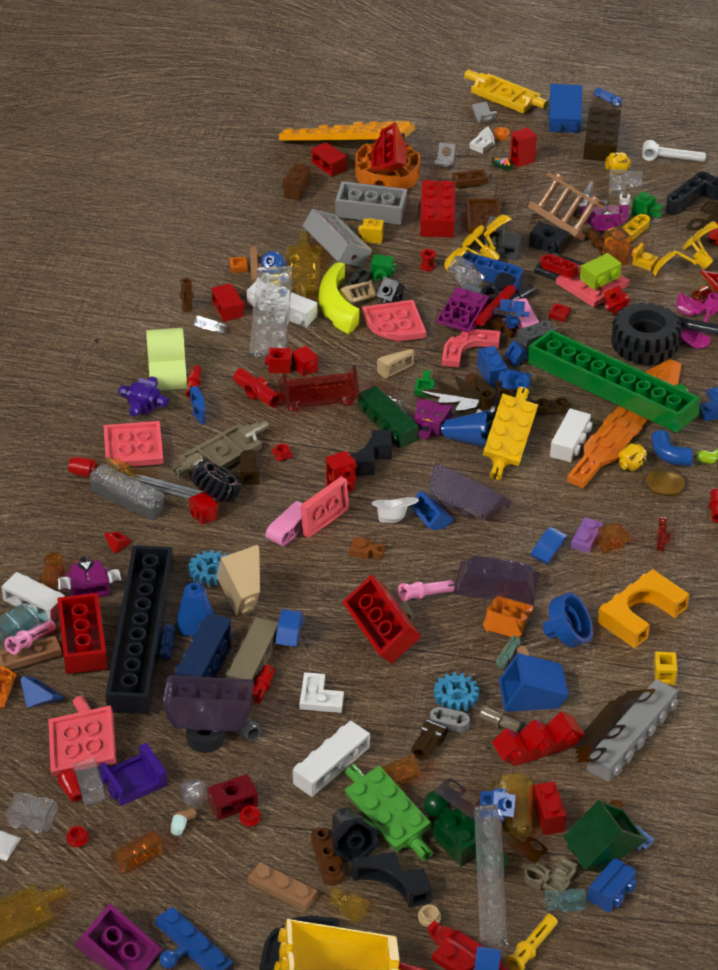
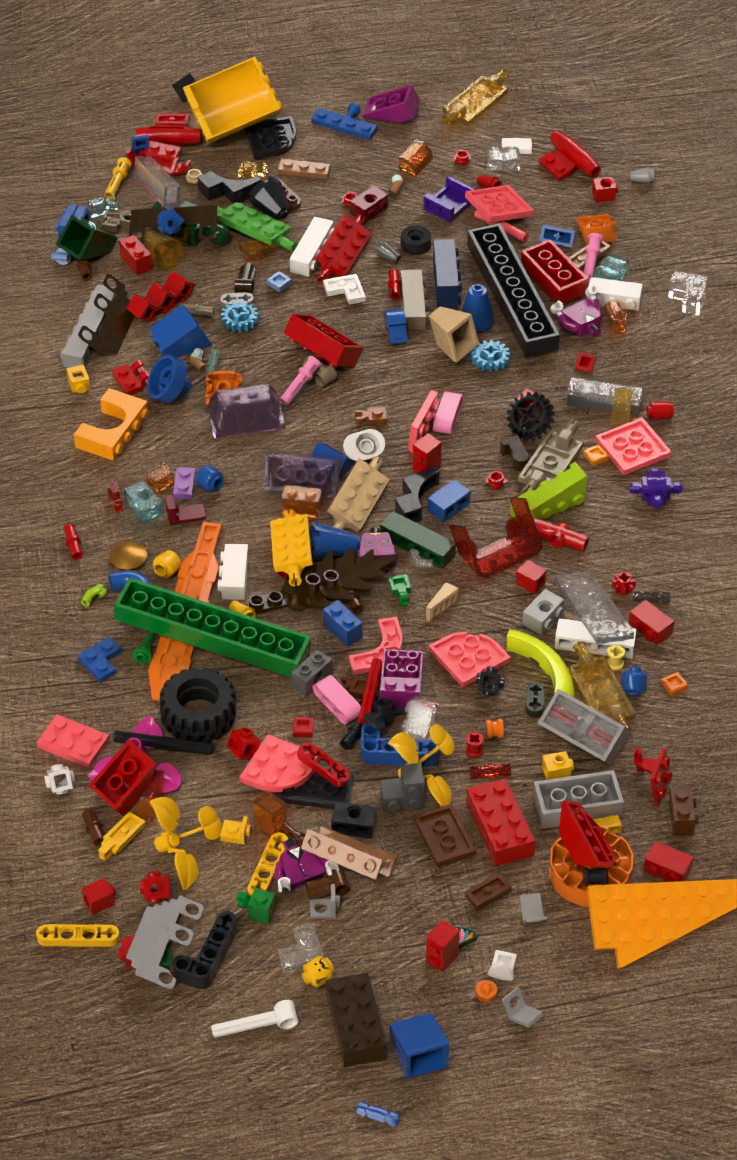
camera: 160 degrees right, 5 degrees up
(90, 782) = (475, 182): clear plate -> none
(167, 358) = (668, 537): yellowish green brick -> none
(167, 487) = (583, 419): axle -> none
(167, 641) = (493, 302): blue axle -> none
(171, 451) = (596, 455): none -> light orange tile
(186, 294) = (692, 604): reddish brown pin -> none
(193, 379) = (623, 525): red pin -> none
(193, 792) = (398, 197): clear cone -> none
(198, 404) = (597, 497): blue slope -> none
(207, 702) = (418, 227): clear purple windscreen -> none
(228, 335) = (623, 583): none -> red gear
(235, 409) = (558, 494): none -> lime wedge
(255, 259) = (655, 681): medium nougat plate -> none
(279, 360) = (556, 566): red brick -> none
(294, 745) = (342, 247): none -> red plate
(300, 198) = (659, 772): none -> red plate
(312, 332) = (543, 612): none -> light grey brick
(339, 440) = (448, 500): none -> brick
(346, 292) = (526, 675): tan slope -> none
(382, 266) = (517, 717): green brick -> none
(391, 725) = (279, 281): none -> medium blue plate
(405, 266) = (494, 728): none -> orange wheel
(420, 468) = (358, 495): none -> tan plate
(424, 244) = (490, 771): none -> clear red pin
(481, 472) = (302, 500): none -> clear orange brick
(504, 92) = (514, 1067): yellow plate -> none
(511, 314) = (347, 677): blue hips -> none
(514, 379) = (307, 615): blue hips -> none
(516, 353) = (327, 650): blue tile -> none
(548, 545) = (214, 455): blue slope -> none
(562, 520) = (209, 478): none -> blue head
(576, 400) = (241, 608): none -> yellow cone
(599, 503) = (183, 514): none -> dark red bracket
(600, 271) = (270, 749): lime brick -> none
(608, 662) = (127, 377): none -> red plate
(635, 520) = (143, 501): none -> clear light blue brick

